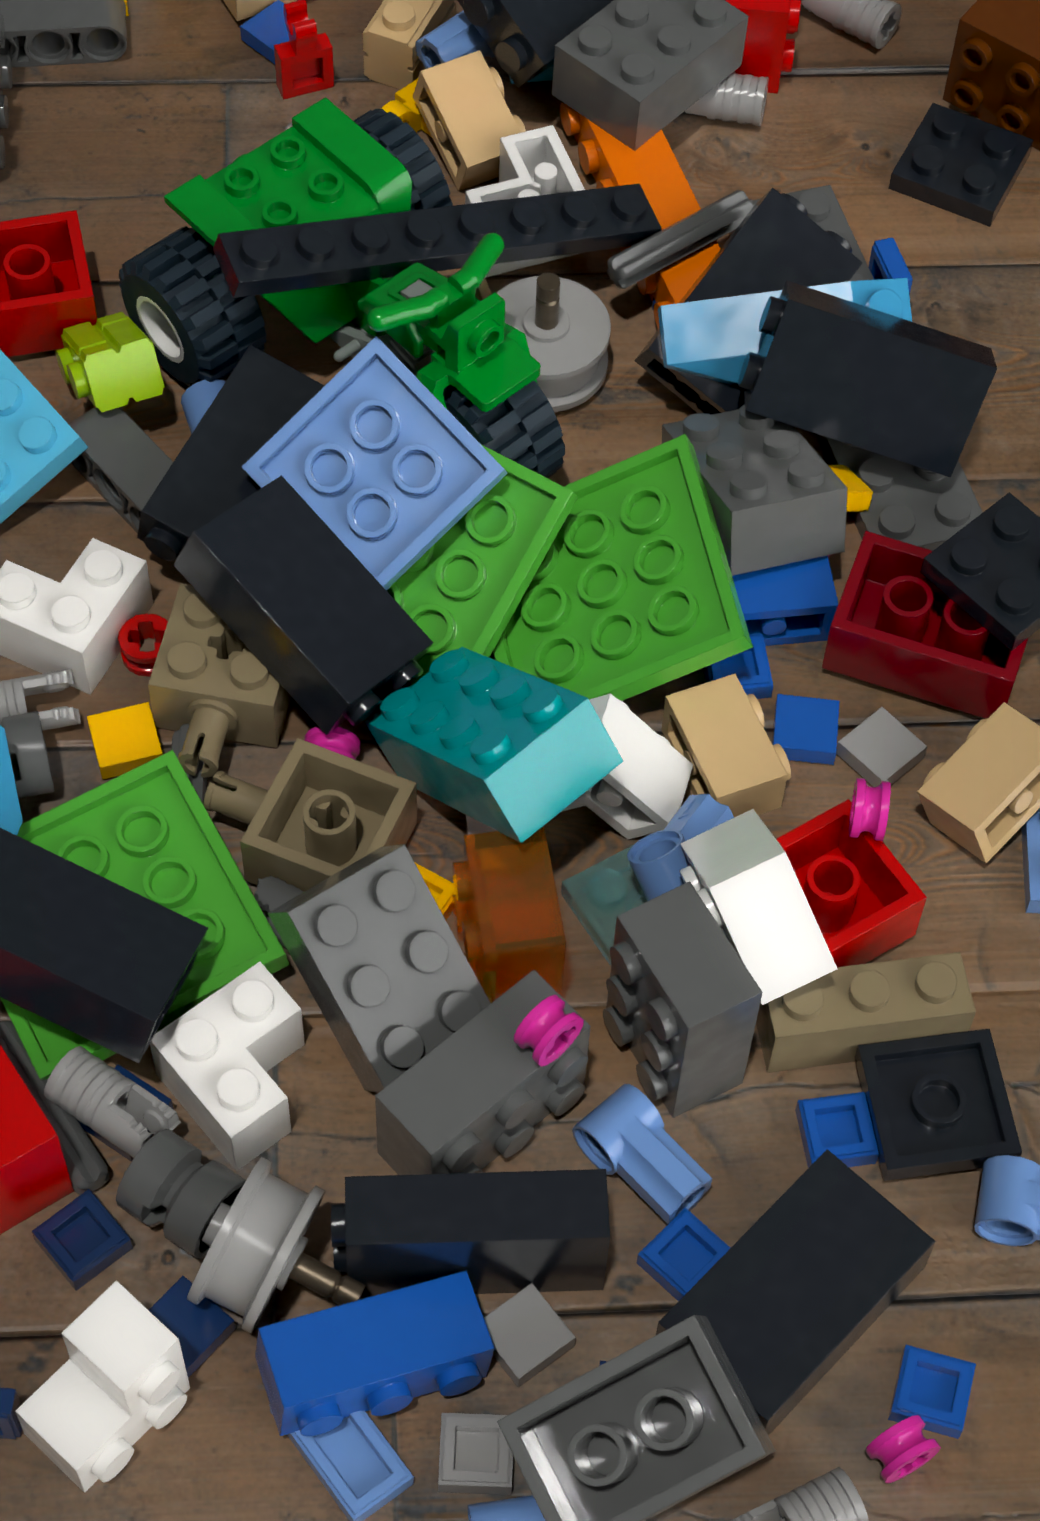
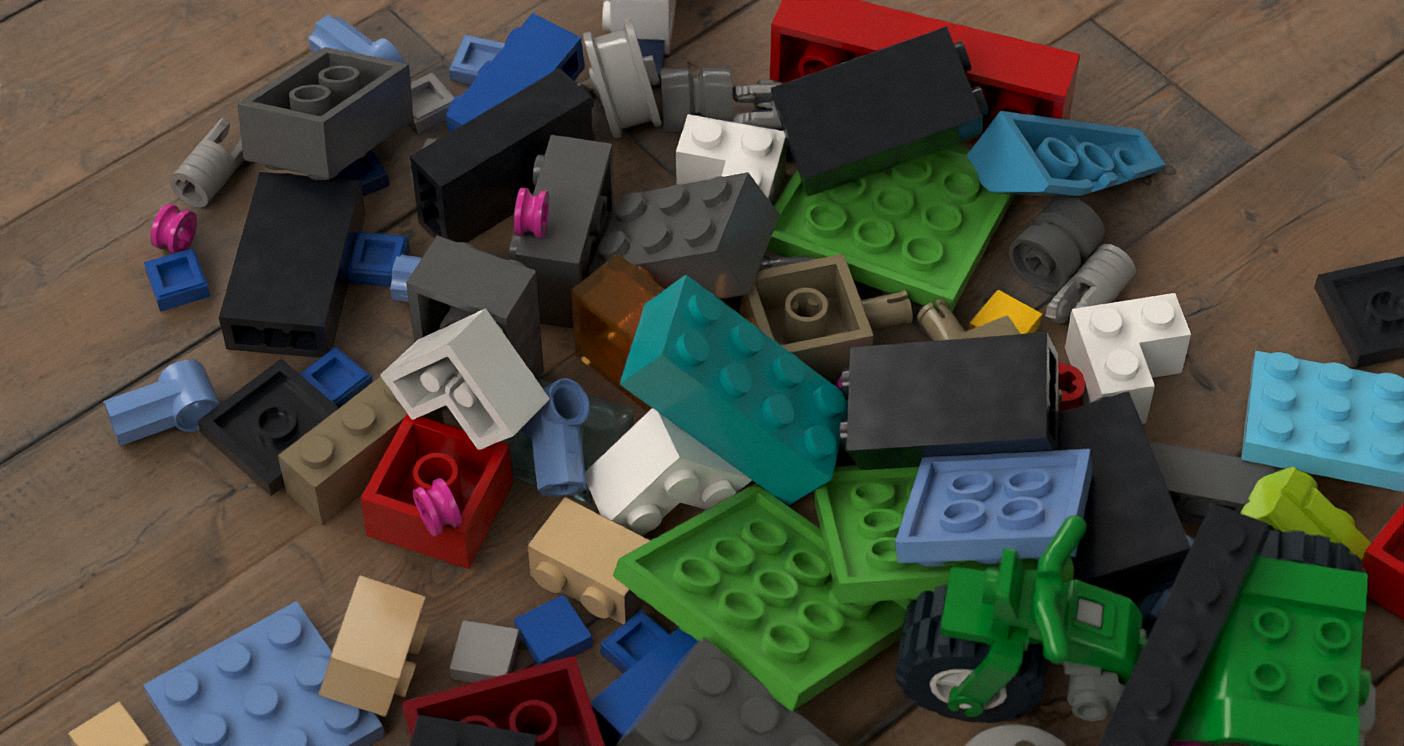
camera: 145 degrees right, 5 degrees down
(82, 1239) = (744, 61): dark blue tile -> none

